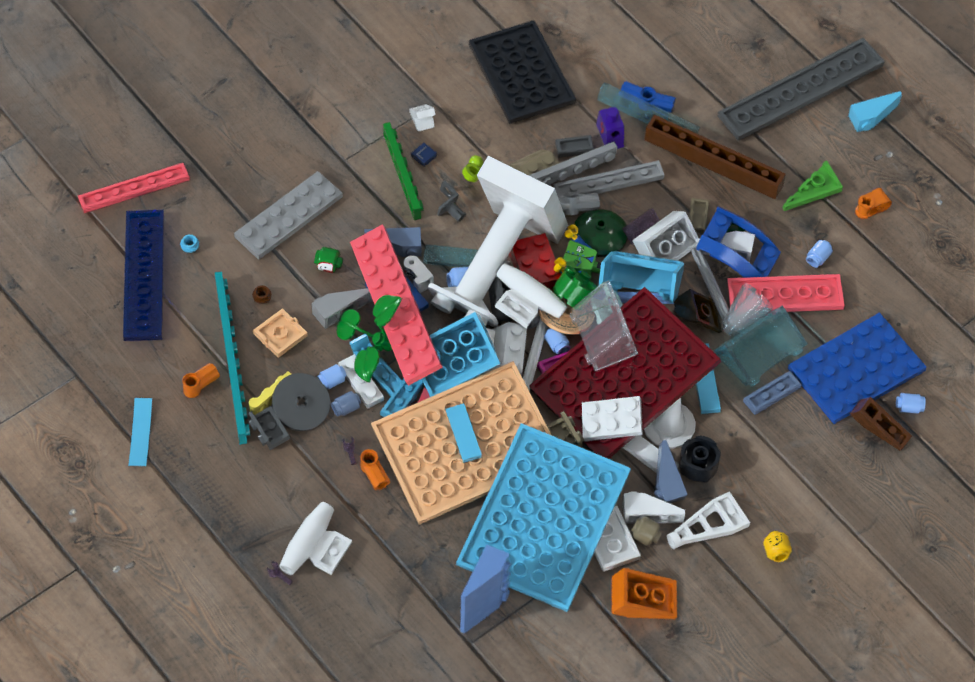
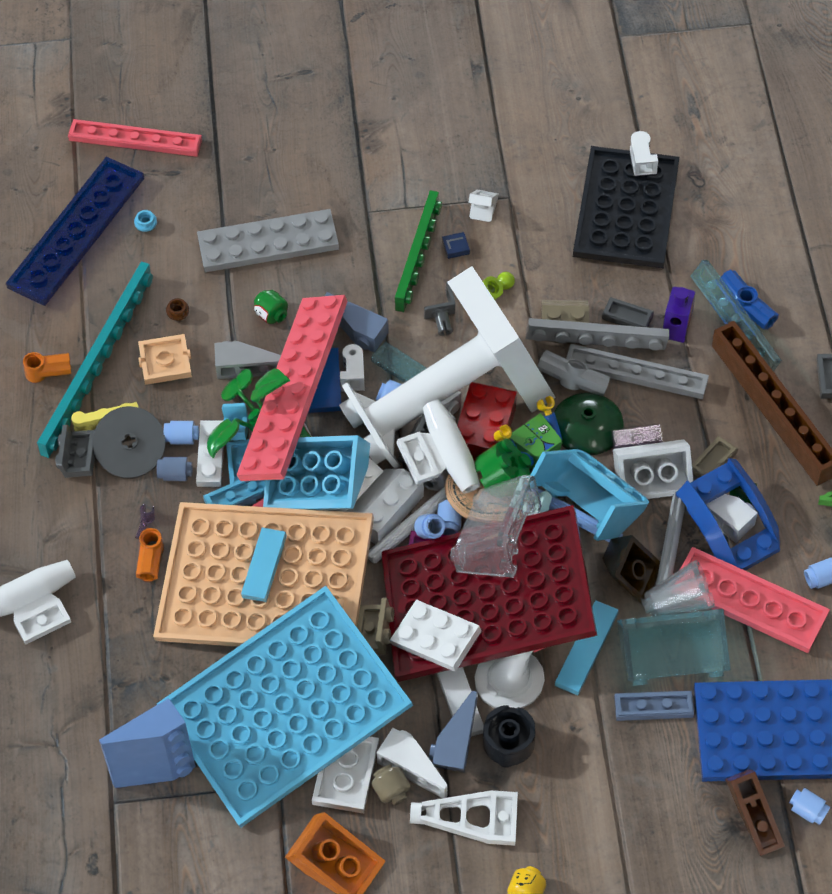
camera: 35 degrees right, 0 degrees up
(510, 30) = (642, 160): none -> white leg
(553, 351) = (436, 526): none -> light blue brick

